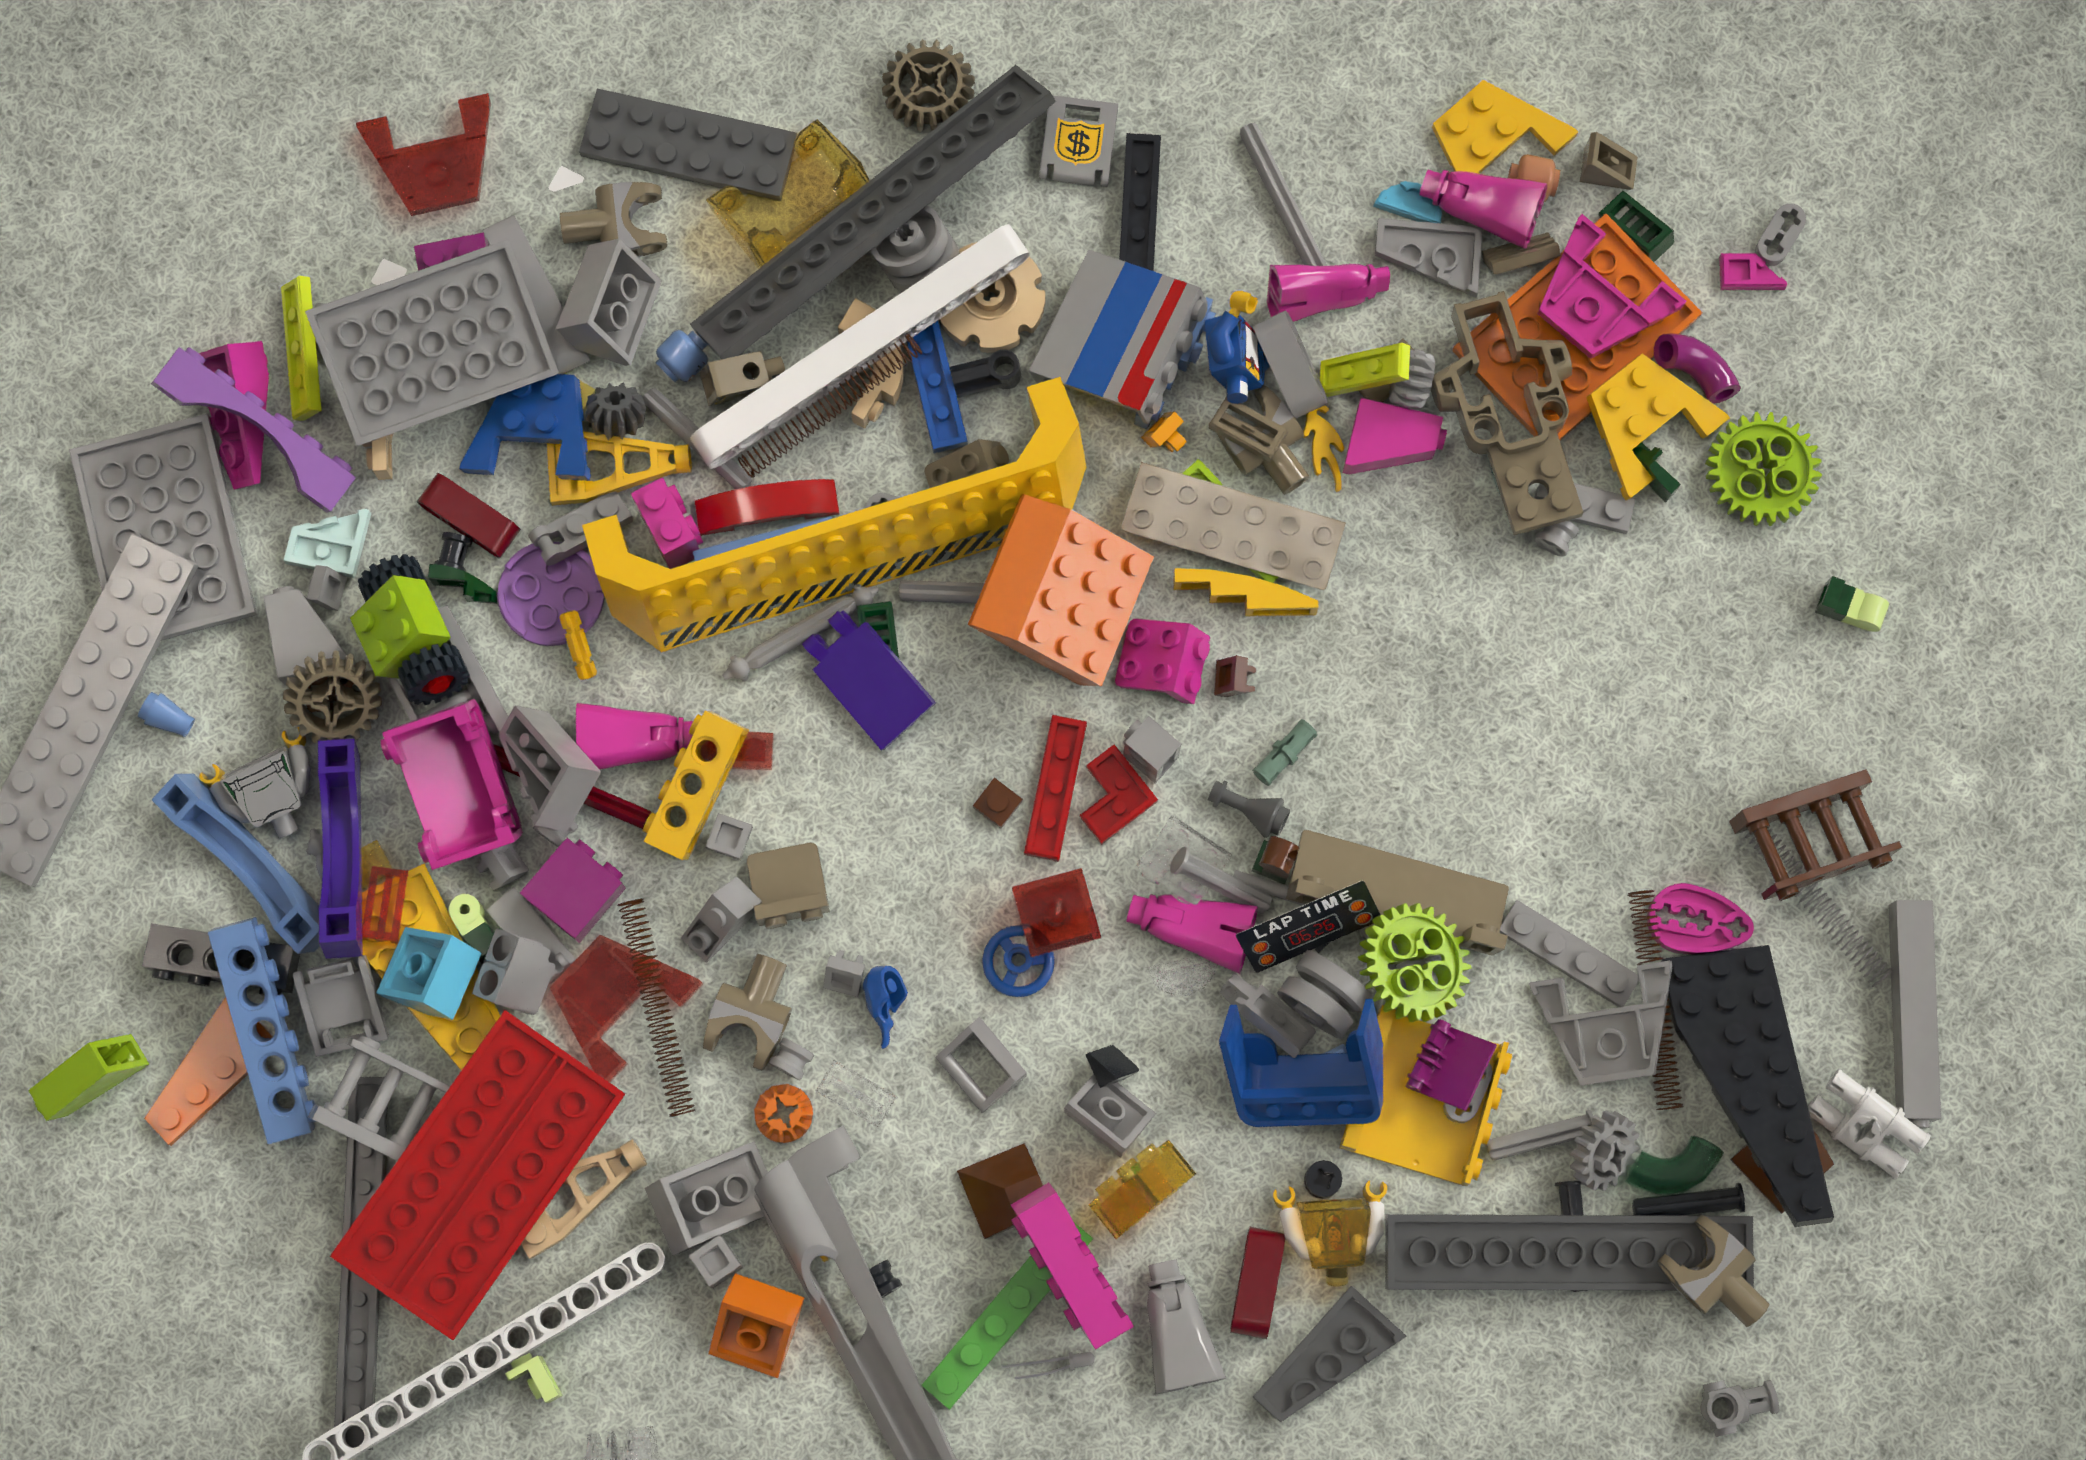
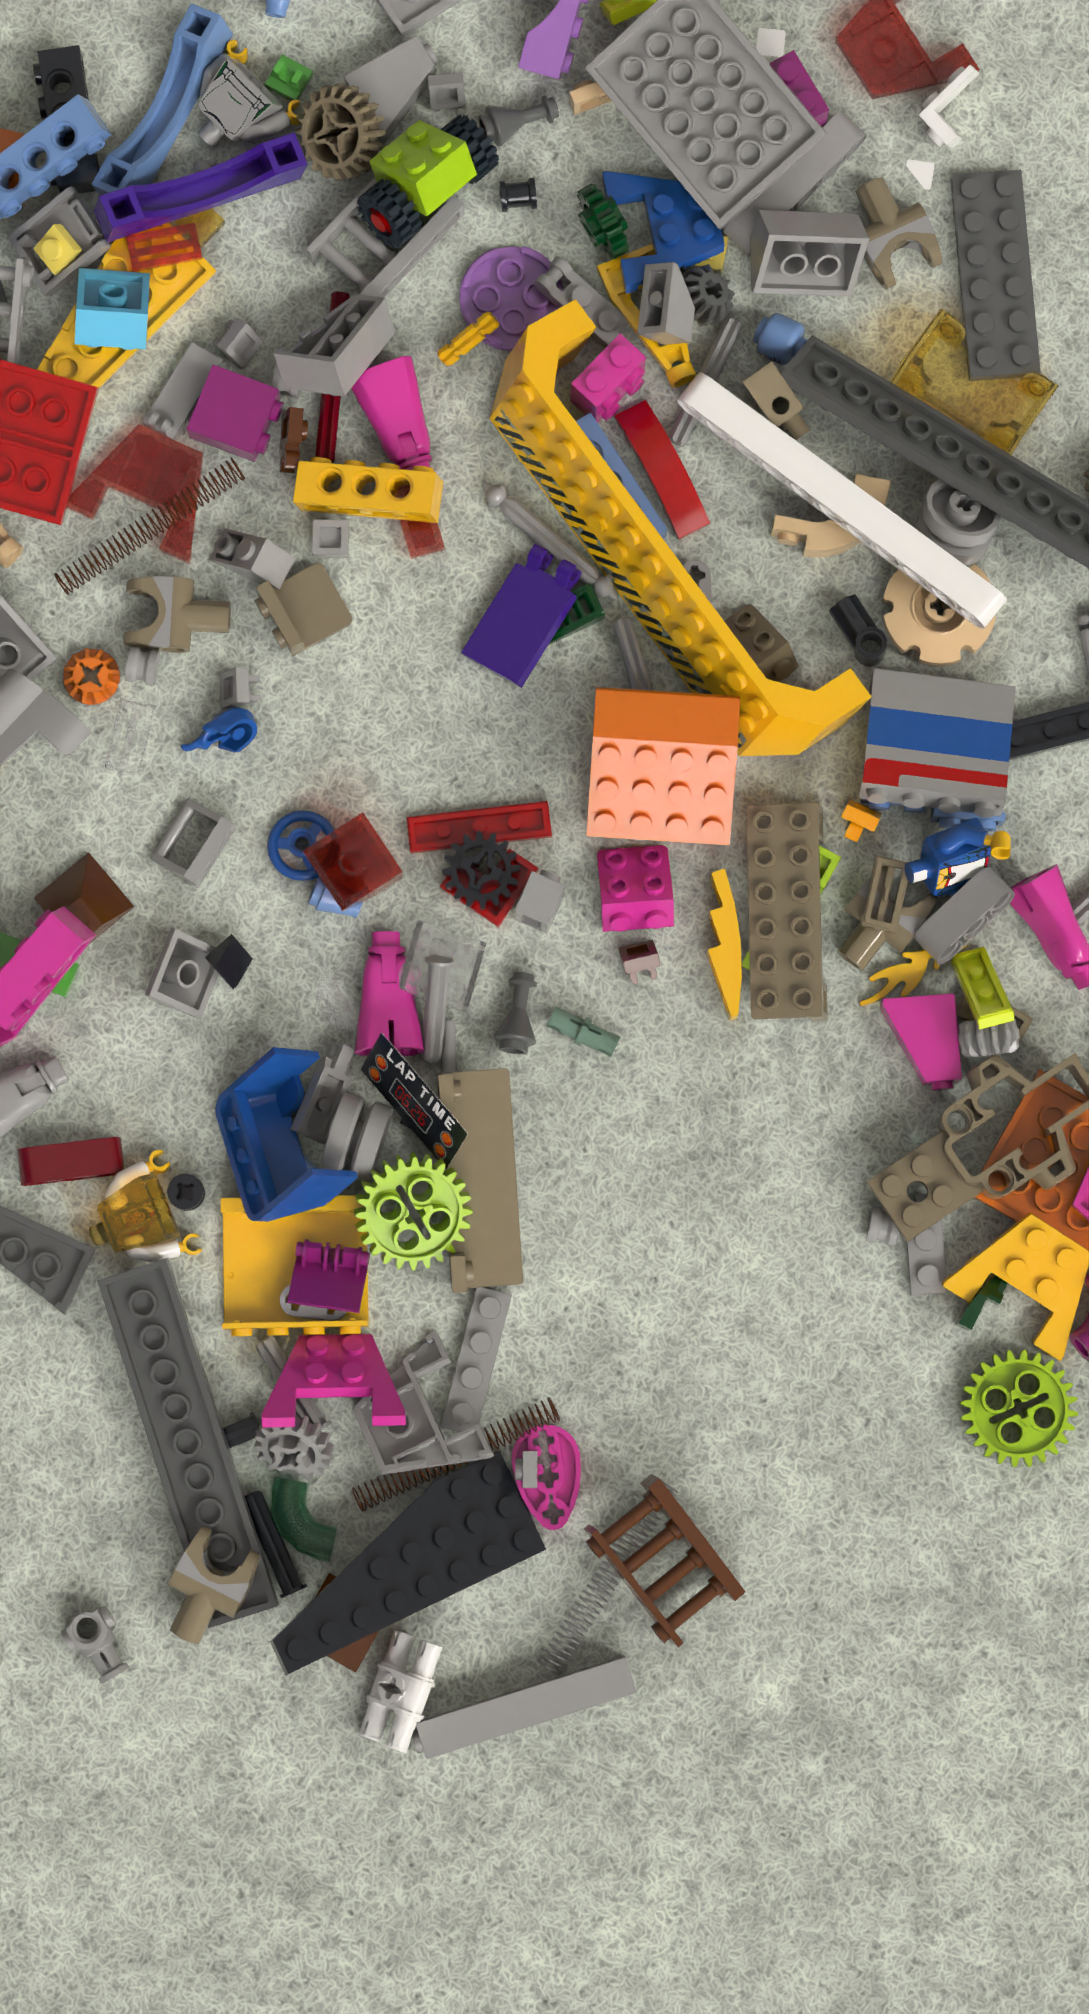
camera: 70 degrees right, 5 degrees up
(257, 735) = (288, 78): none -> bright green tile
(329, 543) = (490, 78): light aqua wing -> none
(348, 1009) = (57, 249): none -> light yellow plate
(378, 541) = (504, 122): none -> dark grey piece
(454, 783) = (294, 271): dark pink windscreen -> none
(468, 515) = (559, 196): dark red beam -> none
(469, 919) = (171, 336): yellowish green leg -> none
(474, 588) = (491, 224): dark green slope -> none
(511, 479) = (602, 221): none -> dark green gear
(514, 972) = (137, 385): light grey piece -> none
(532, 147) = (939, 129): none -> white bracket
(614, 842) = (293, 432): none -> reddish brown plate
(616, 445) = (665, 305): none -> light grey slope
(752, 475) = (779, 492): reddish brown piece -> none
(937, 391) = (828, 587): blue gear -> none
(997, 803) = (446, 777): reddish brown plate -> none
(1079, 956) = (325, 902): none -> medium blue cone
(1112, 783) = (465, 865): none -> black gear
(1140, 1187) = (121, 1023): clear yellow brick -> none
(1276, 859) = (474, 1053): reddish brown leg -> none
(1541, 1085) = (334, 1368): none -> dark pink wing
(1692, 934) = (527, 1469): none -> light grey plate
(1852, 605) = (909, 1535): leg -> none

